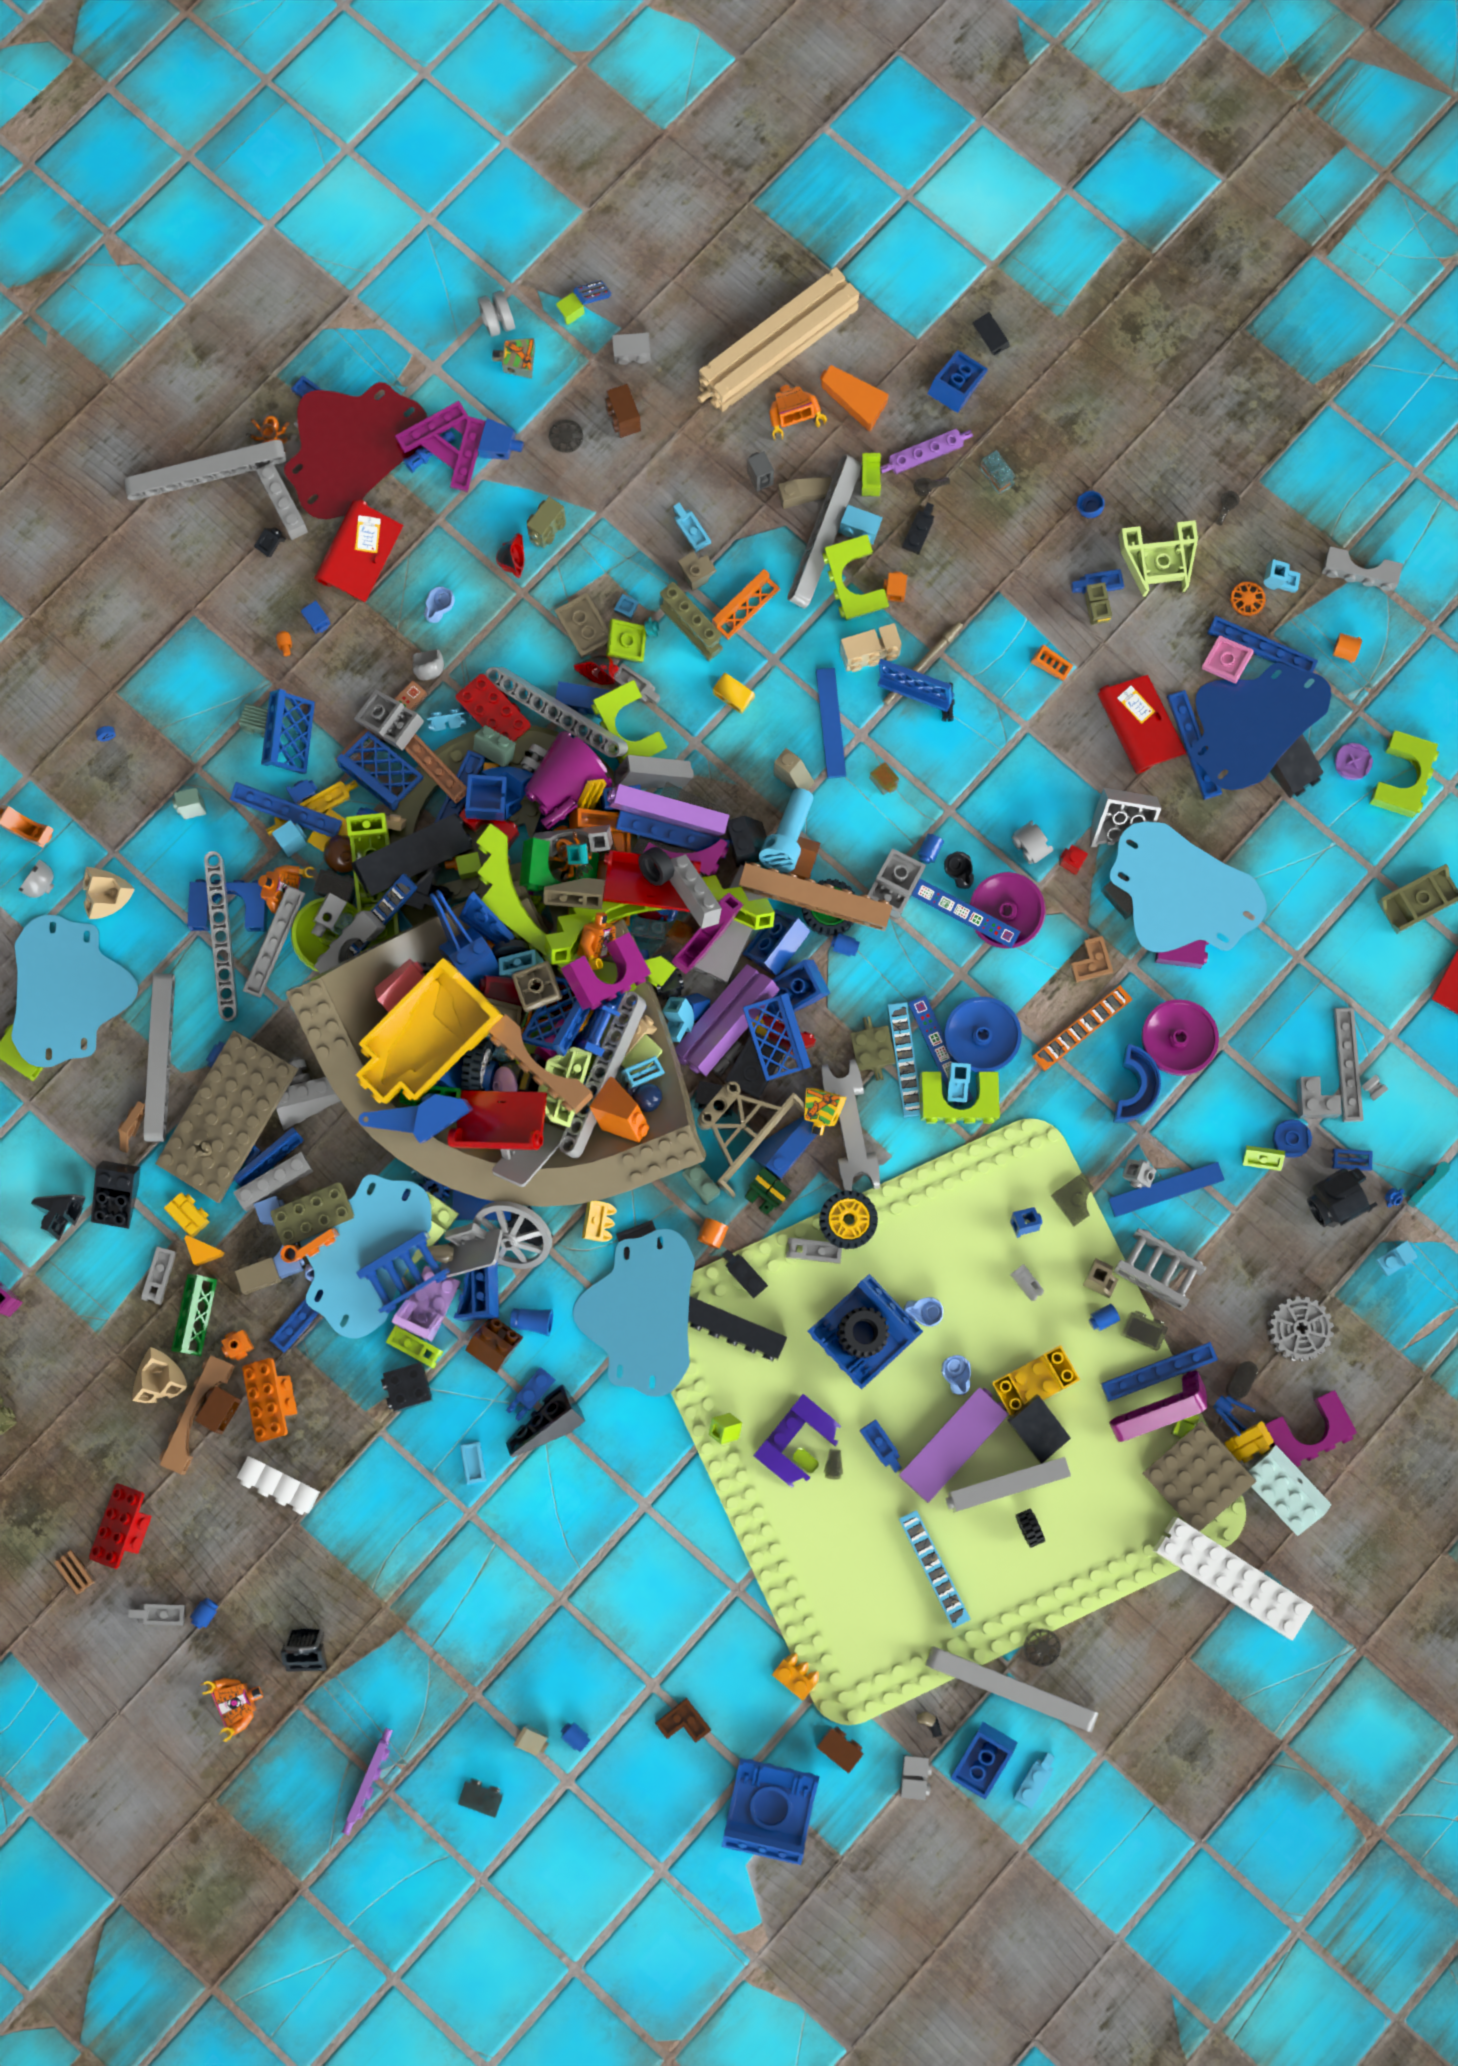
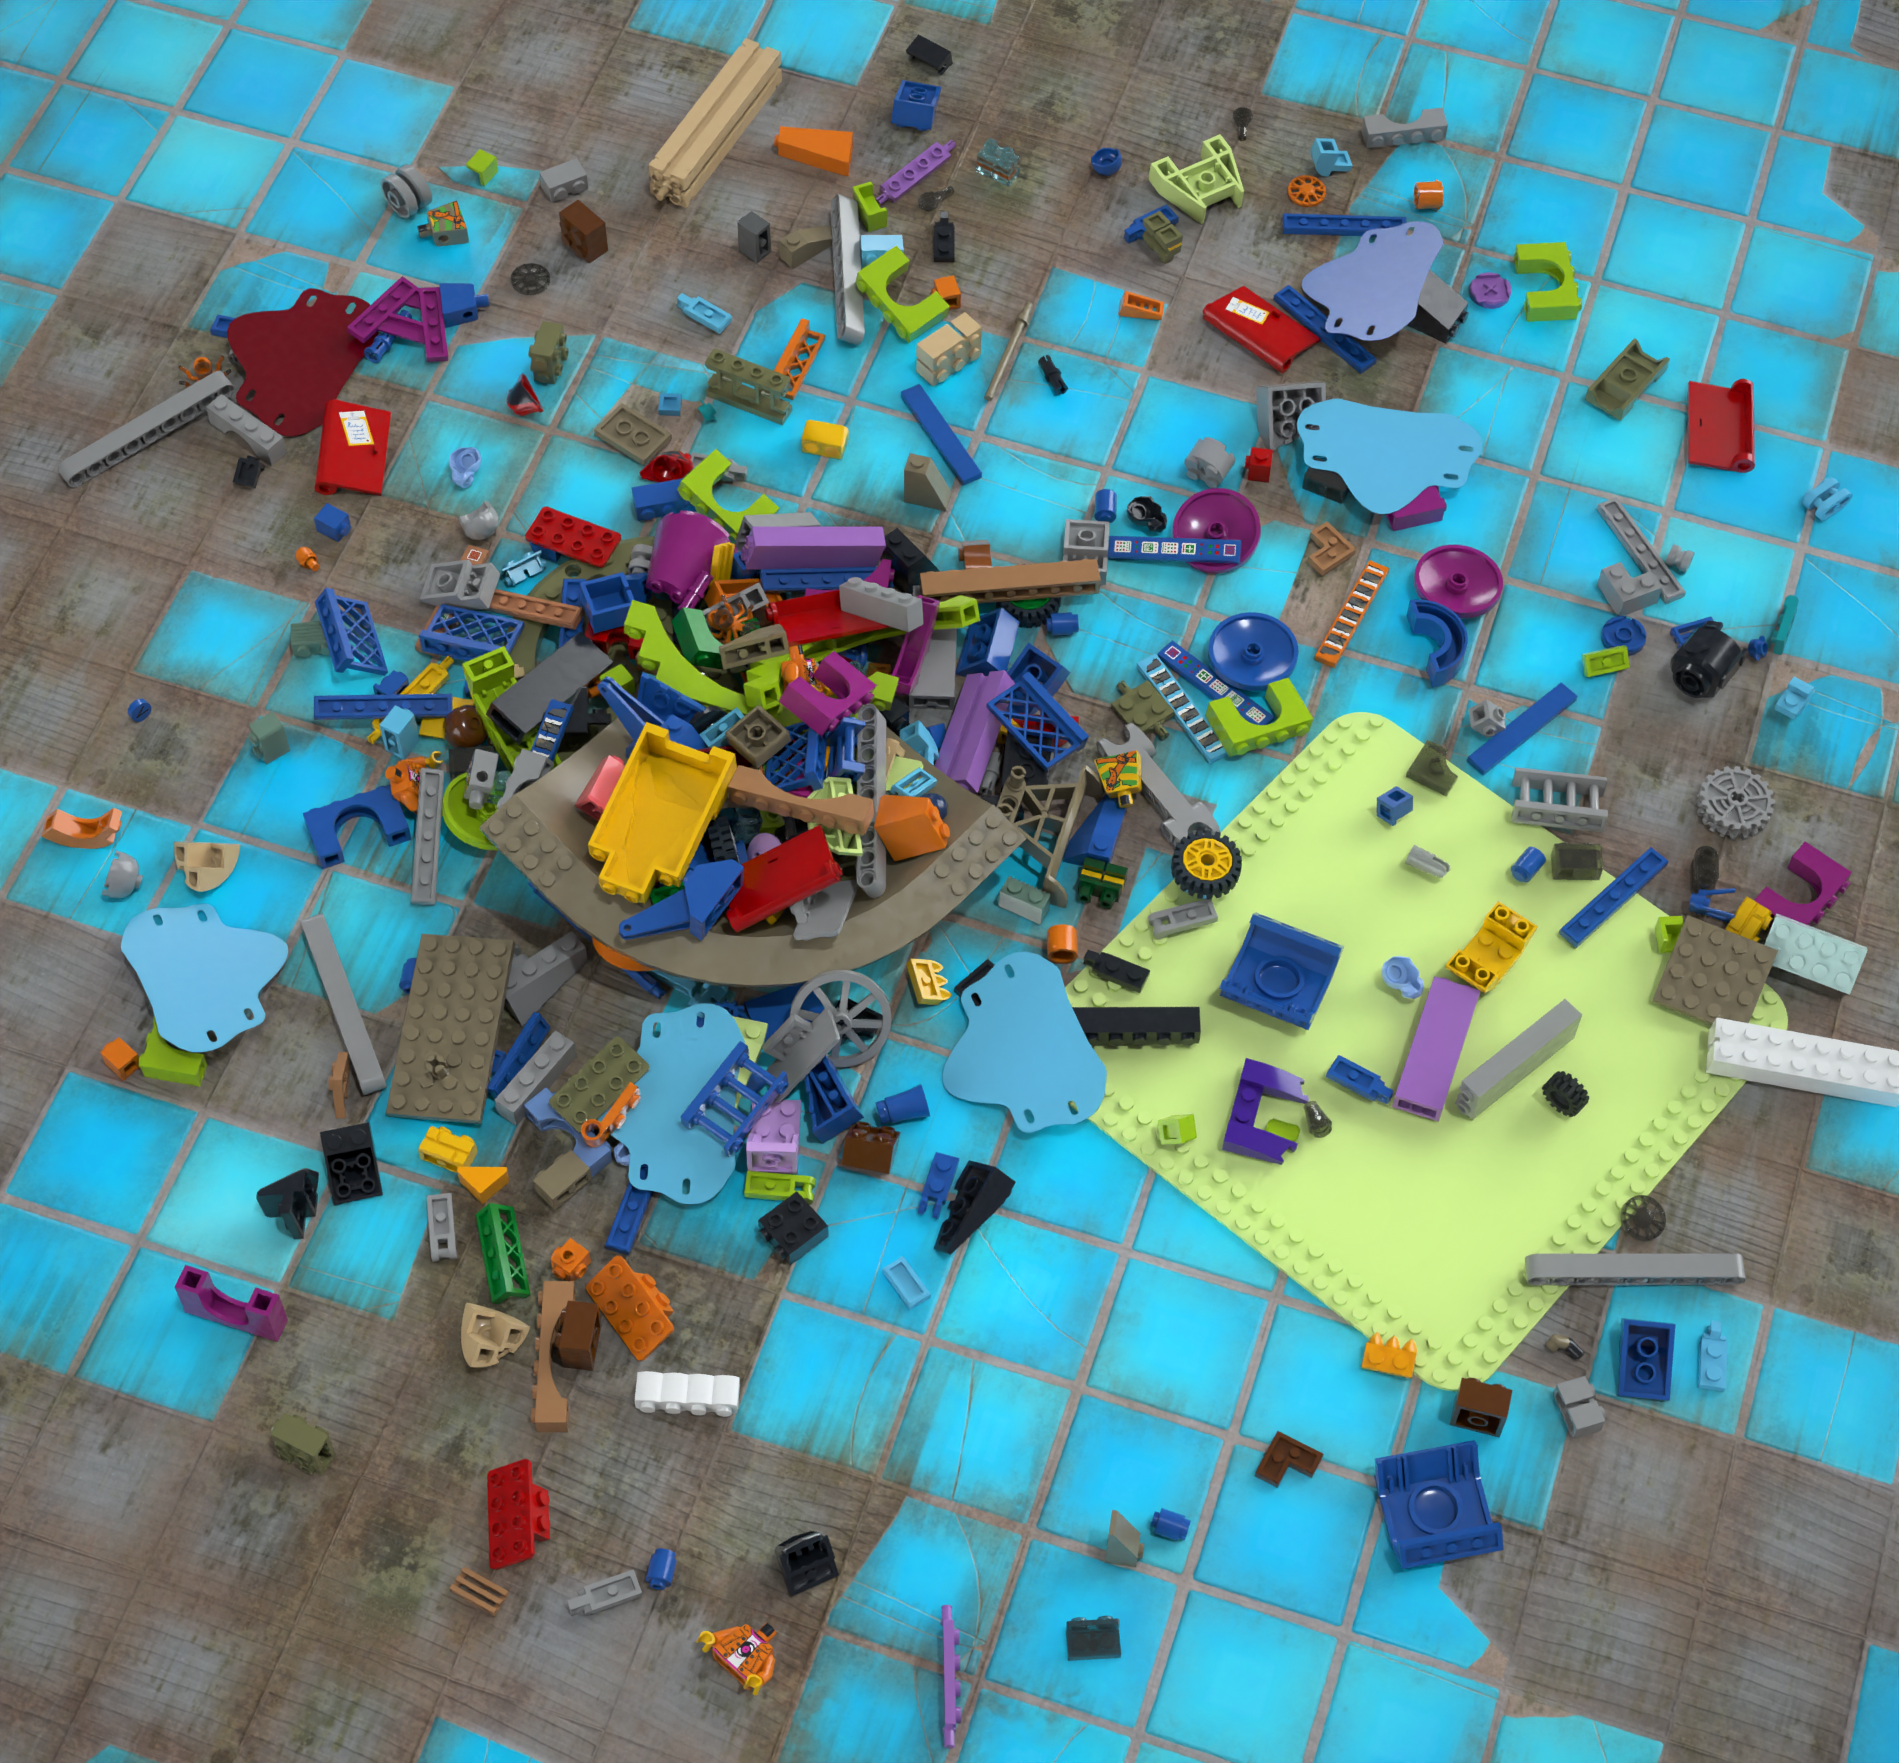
camera: 25 degrees left, 20 degrees down
(223, 926) = (367, 861): light grey beam -> none
(442, 1253) = (771, 1066): dark tan cone -> none
(494, 746) = (590, 562): sand green brick -> none
(564, 712) = (633, 509): light grey beam -> none
(577, 853) = (738, 610): teal brick -> none
(592, 292) = (498, 145): tile -> none
(626, 640) = (686, 431): lime tile -> none
(662, 861) = (839, 587): black tyre -> none
(696, 570) = (730, 341): dark tan brick -> none
(781, 849) = (950, 546): medium azure piece -> none
(793, 407) = (761, 174): orange torso -> none
(878, 1326) = (1285, 953): black tyre -> none
(884, 779) = (1024, 461): clear orange brick -> none
(915, 685) = (1014, 370): blue fence -> none
(925, 1311) = (1336, 927): light blue hair -> none
(934, 1569) = (1483, 1182): tile -> none
(958, 1082) = (1249, 697): medium azure brick -> none
(1039, 1429) = (1519, 991): black tile -> none
(1101, 1278) = (1503, 829): dark tan brick -> none
(1163, 1412) = (1661, 900): beam -> none
(1227, 659) = (1316, 244): bright pink plate -> none

